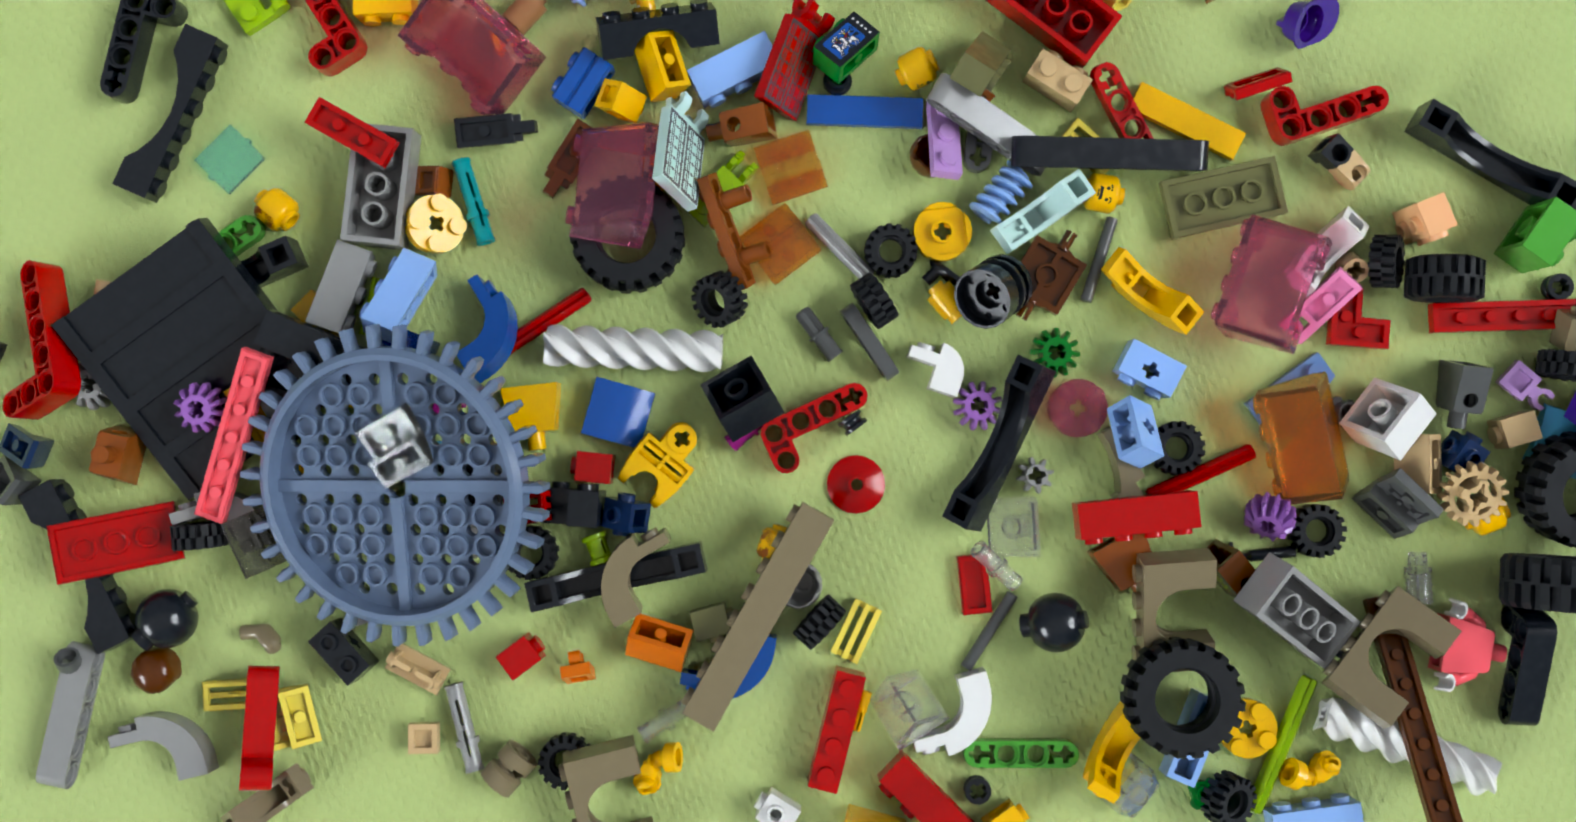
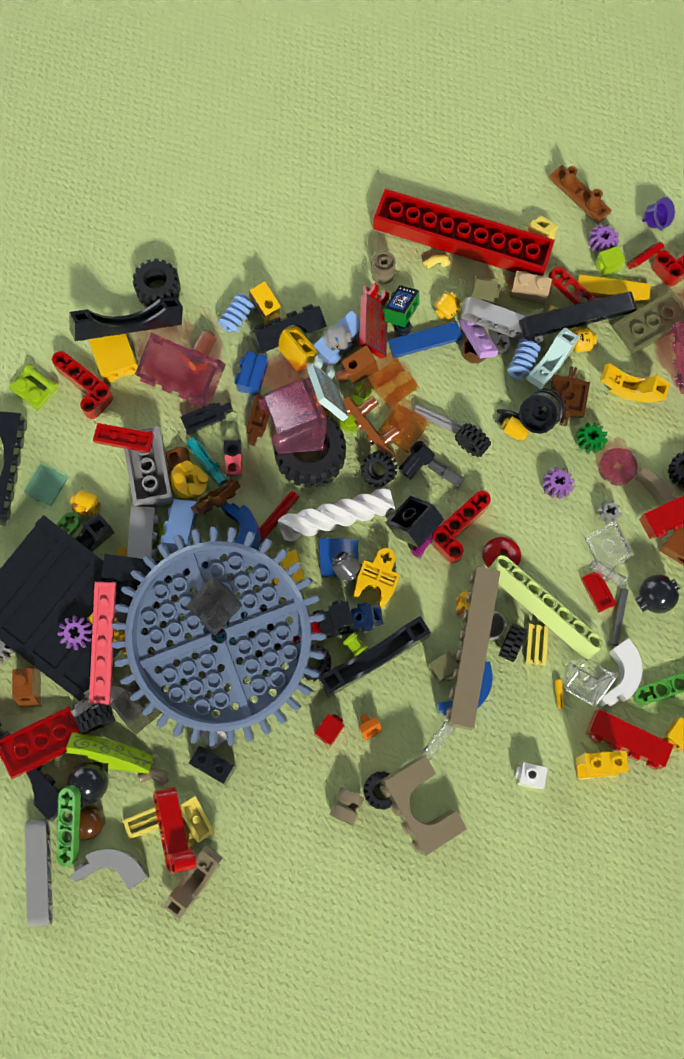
camera: 20 degrees left, 15 degrees down
(71, 659) = (30, 829): dark grey hinge -> none
(129, 641) = (67, 825): none -> bright green beam
(207, 587) = (108, 751): none -> lime slope
(417, 668) = (263, 762): tan hinge -> none
(423, 737) = (283, 806): tan plate -> none
(464, 267) = (216, 497): none -> reddish brown plate
(472, 761) = (320, 811): light grey pin -> none
(512, 209) = (233, 457): none -> leg
(593, 467) = (334, 593): red brick -> none
(616, 588) = (375, 654): dark tan arch -> none
(618, 432) = (345, 566): none -> dark grey head
(620, 100) = (278, 374): yellow brick -> none
(659, 642) = (416, 689): orange brick -> none
(668, 758) = (439, 782): yellow arm -> none
(725, 72) = (337, 337): none -> light grey head
(788, 297) = (419, 456): none -> black piece
(836, 729) = (549, 708): red brick -> none
(852, 422) = (486, 517): black bush -> none
(869, 341) = (478, 467): dark grey beam -> none
(897, 234) = (473, 401): black tyre -> none
(908, 627) = (547, 608): none -> yellowish green beam
(929, 221) = (499, 382): yellow plate -> none
(946, 364) = (530, 465): white brick -> none
(977, 780) = (655, 725): black bush -> none
(1021, 400) = (584, 465): black arch -> none
(1099, 259) = (595, 379): dark grey bar -> none
(1135, 432) = (659, 465): light blue brick -> none
(1165, 369) = (651, 429): light blue brick -> none
(1198, 75) = (610, 261): none -> lime brick
(1210, 27) = (603, 238): none -> medium lavender gear

